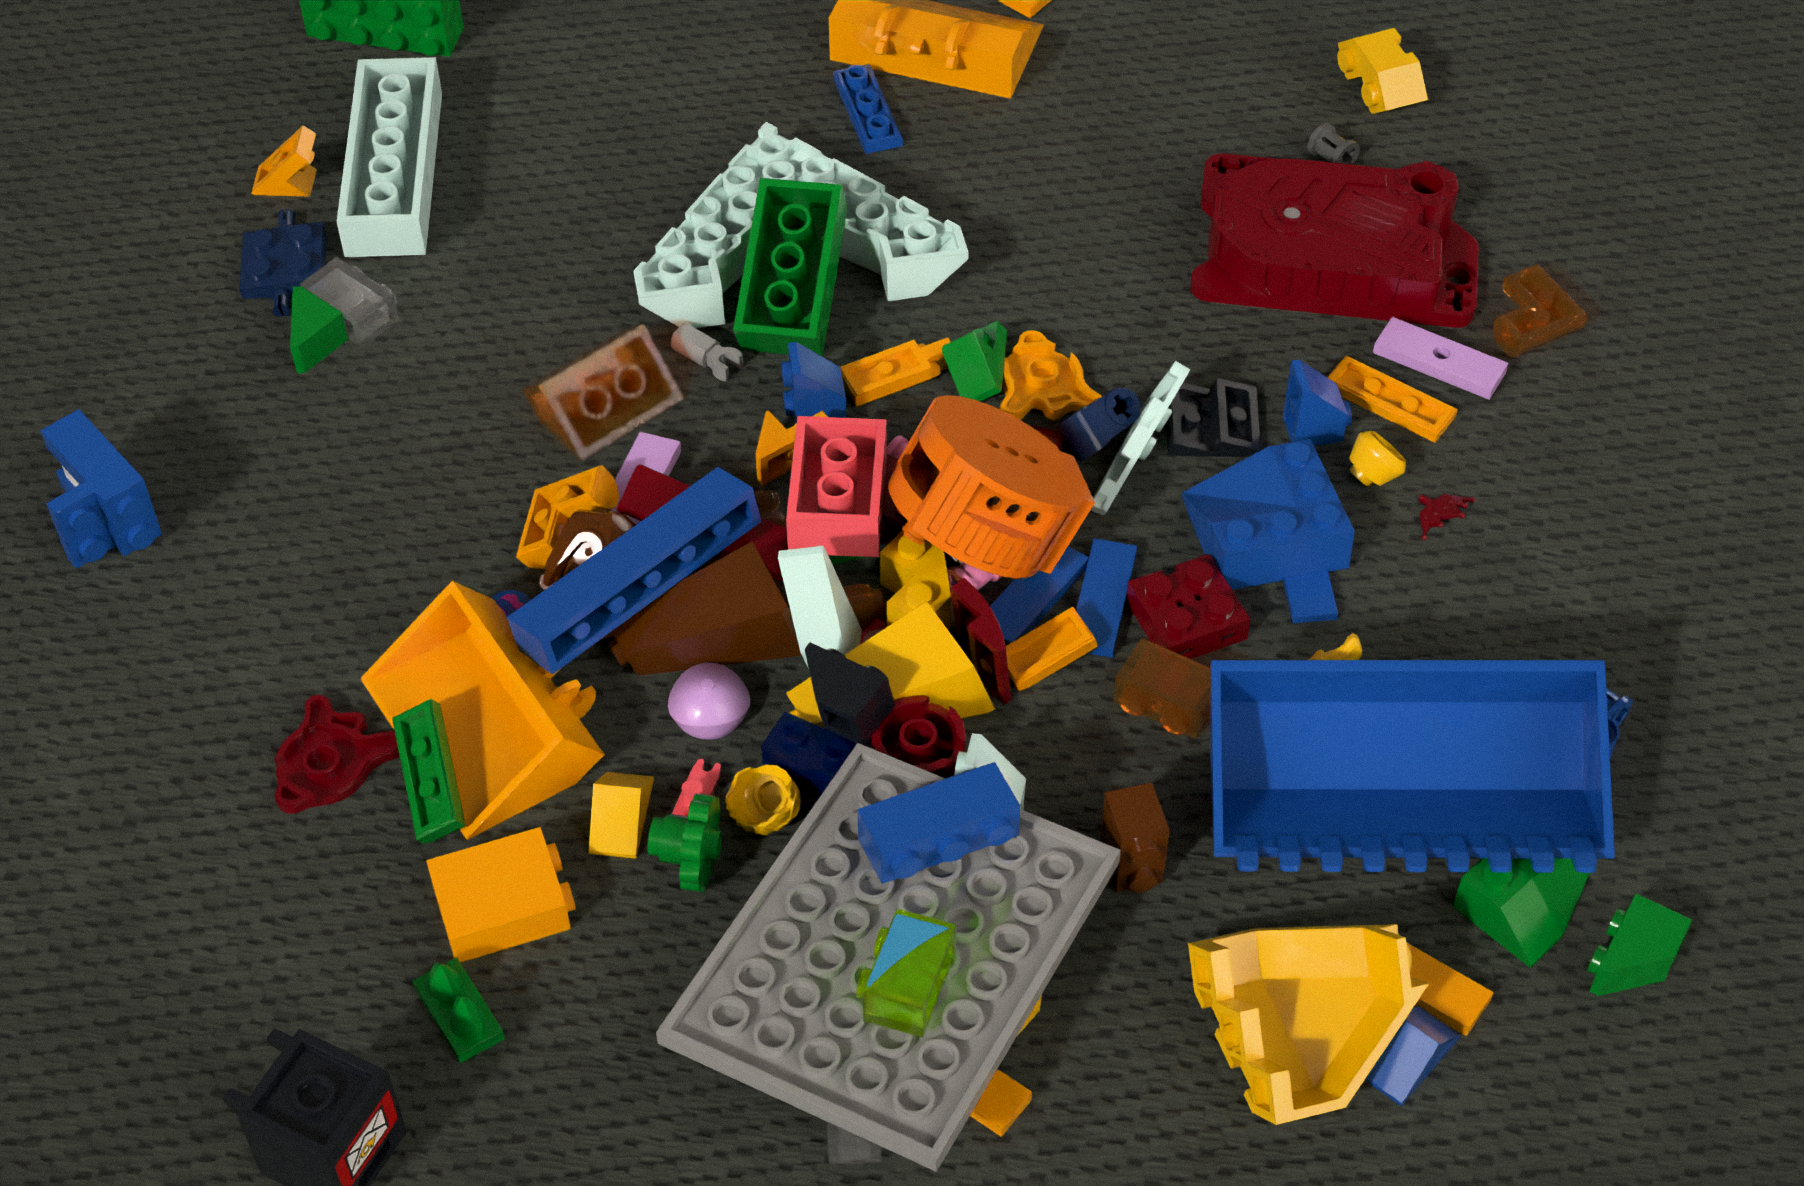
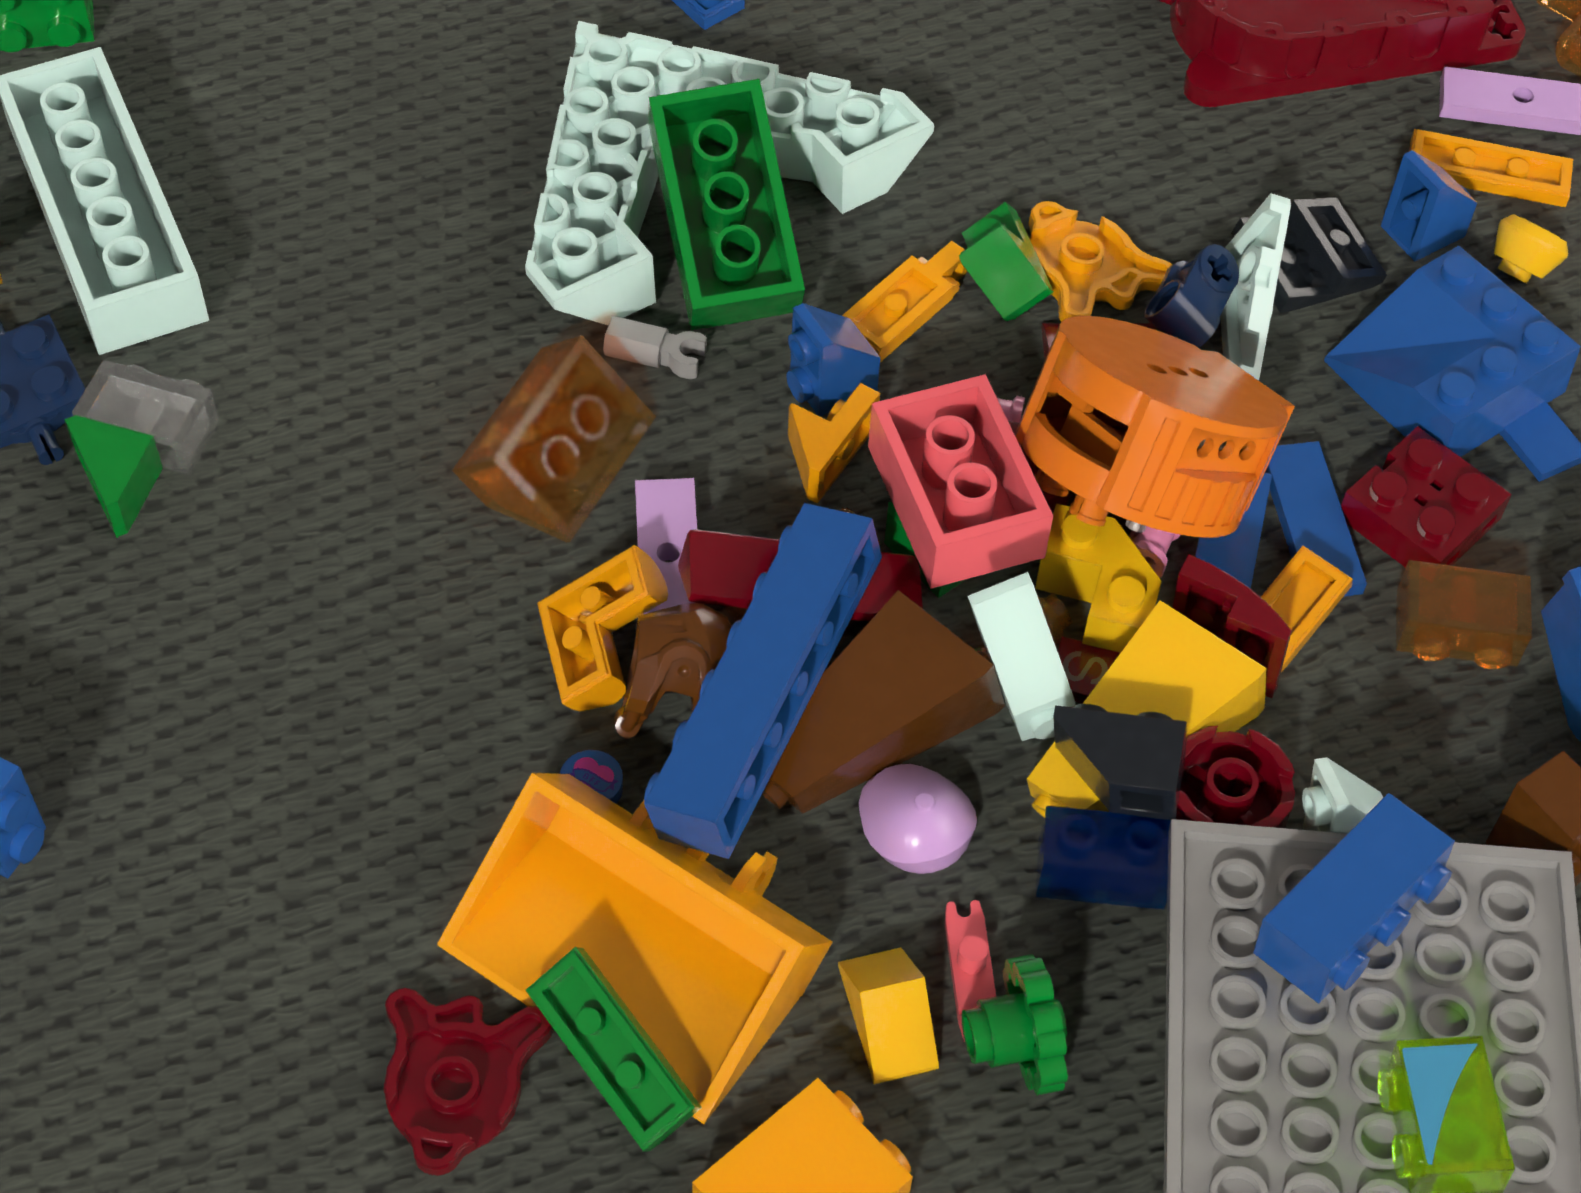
camera: 25 degrees left, 5 degrees up
(763, 799) = (1070, 930): yellow hair -> none

